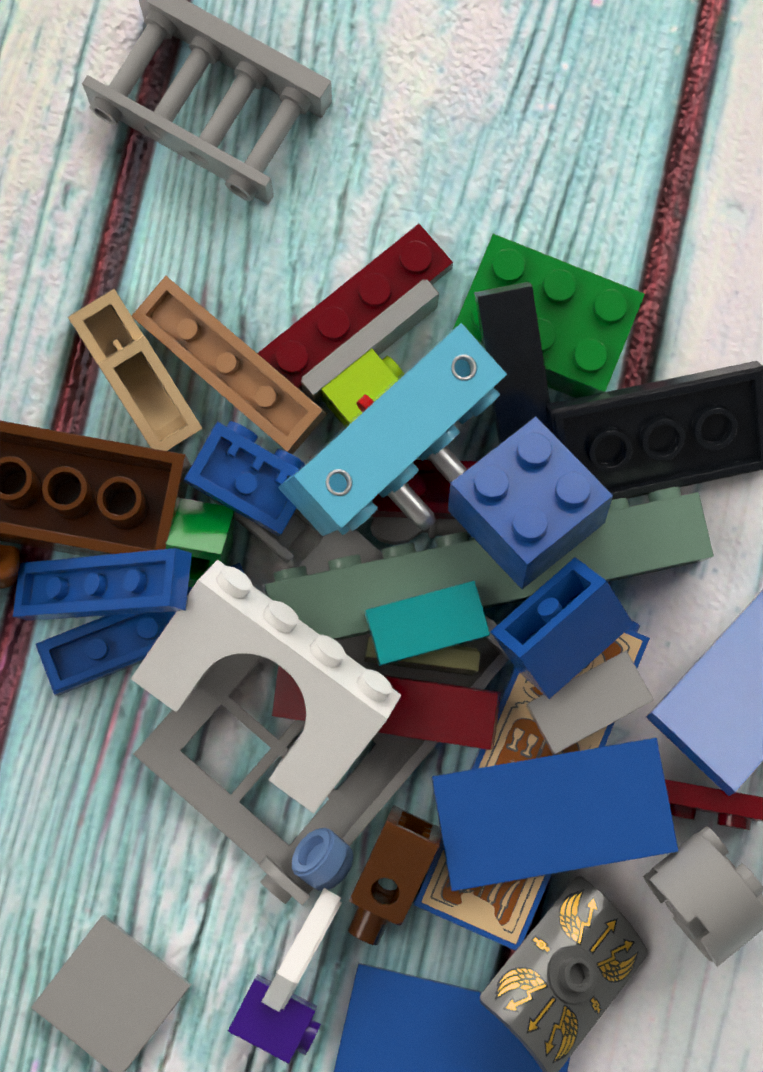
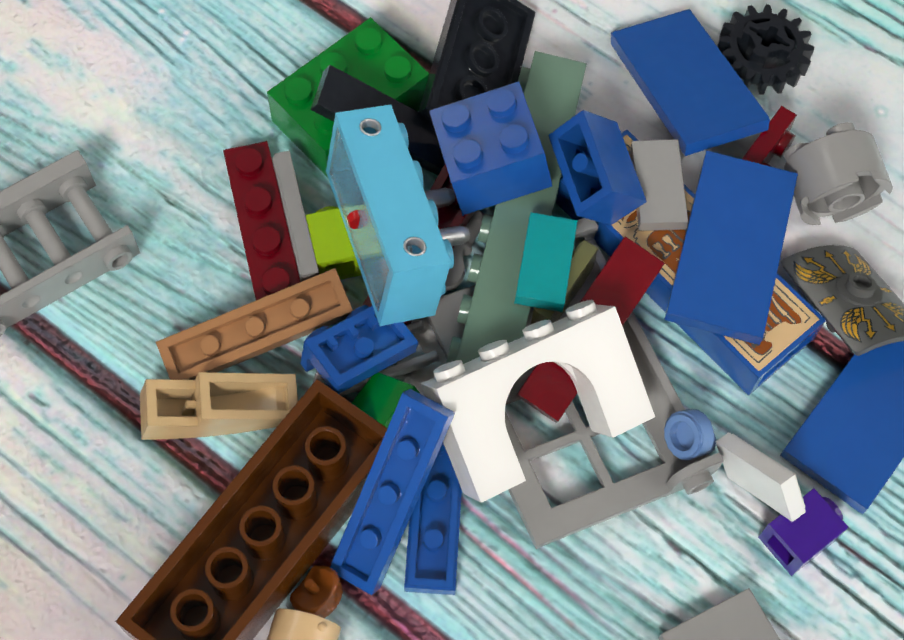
camera: 65 degrees left, 15 degrees down
(399, 854) = (725, 383): reddish brown torso -> none

